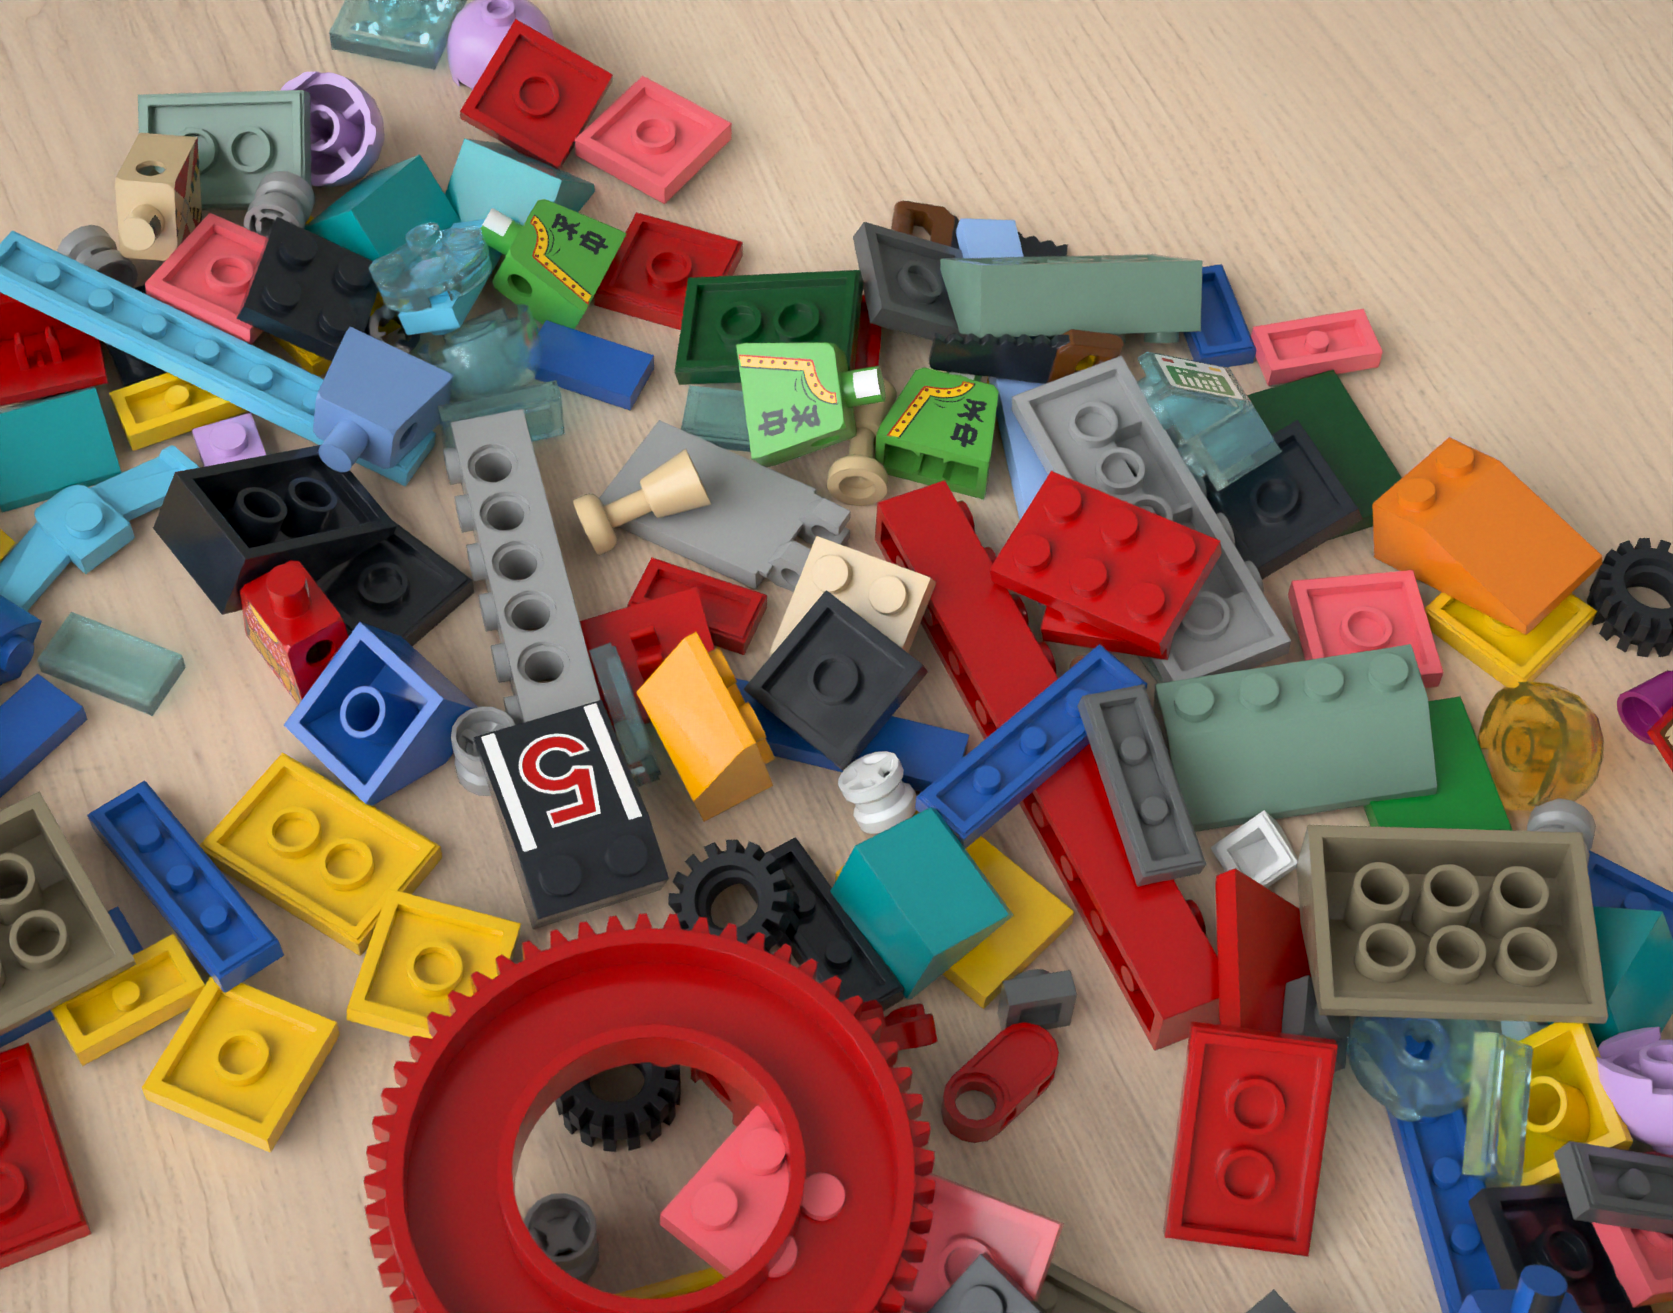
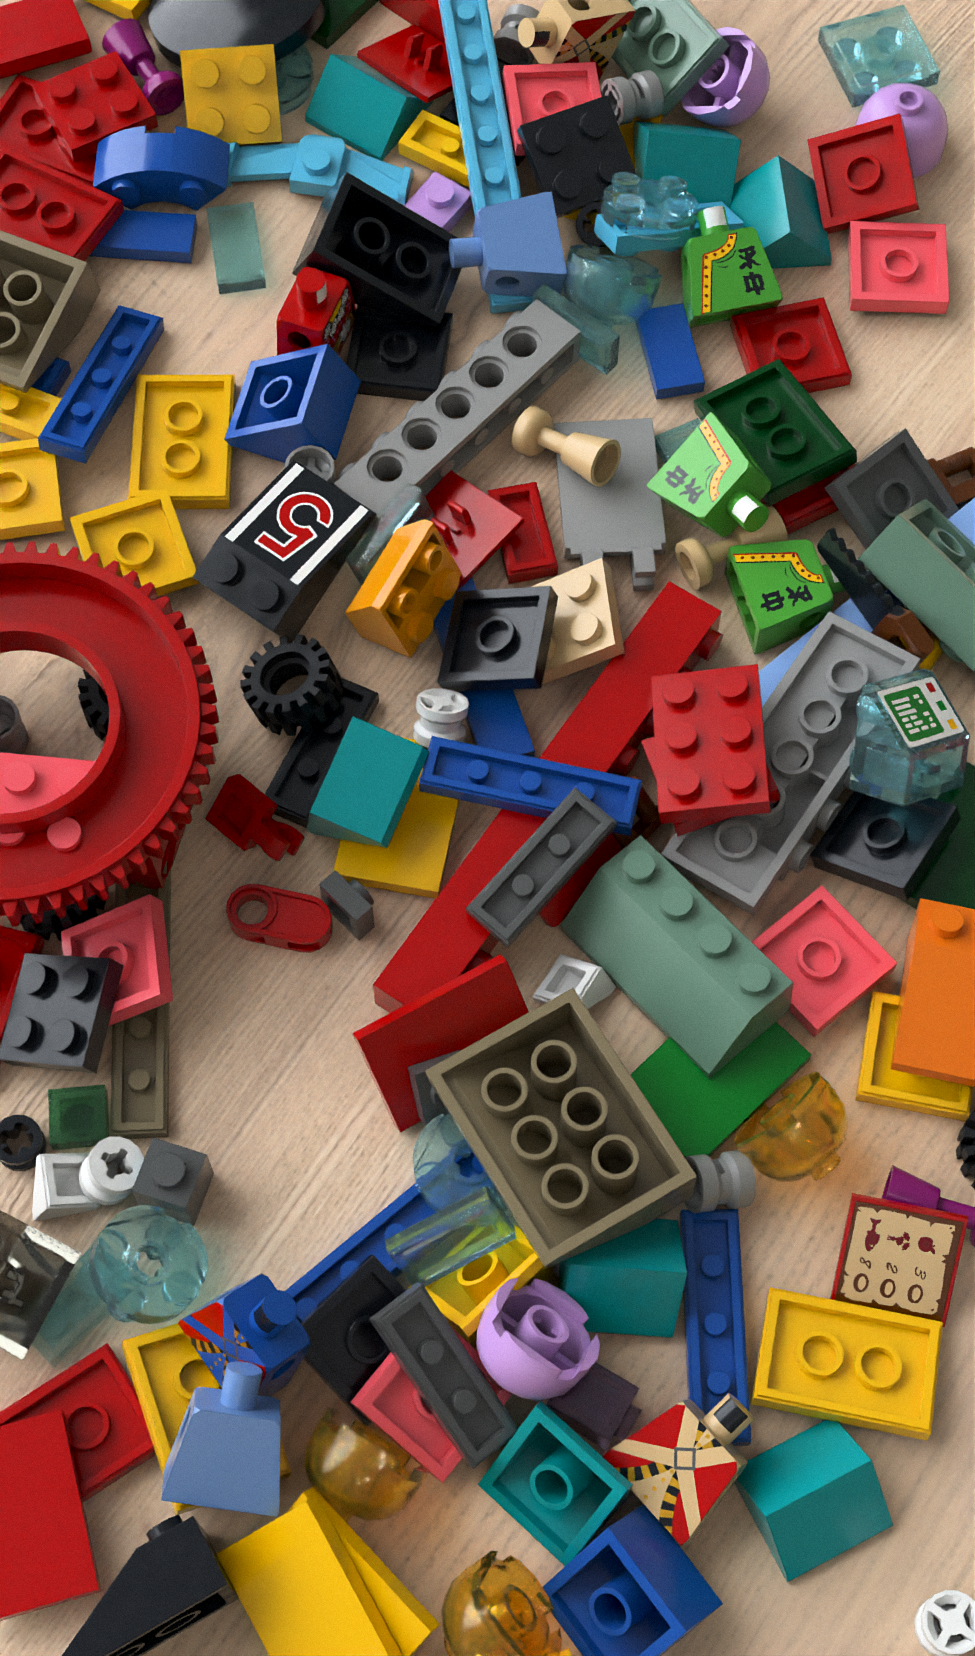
camera: 60 degrees right, 10 degrees up
(1250, 1138) = (315, 1084): red tile -> none

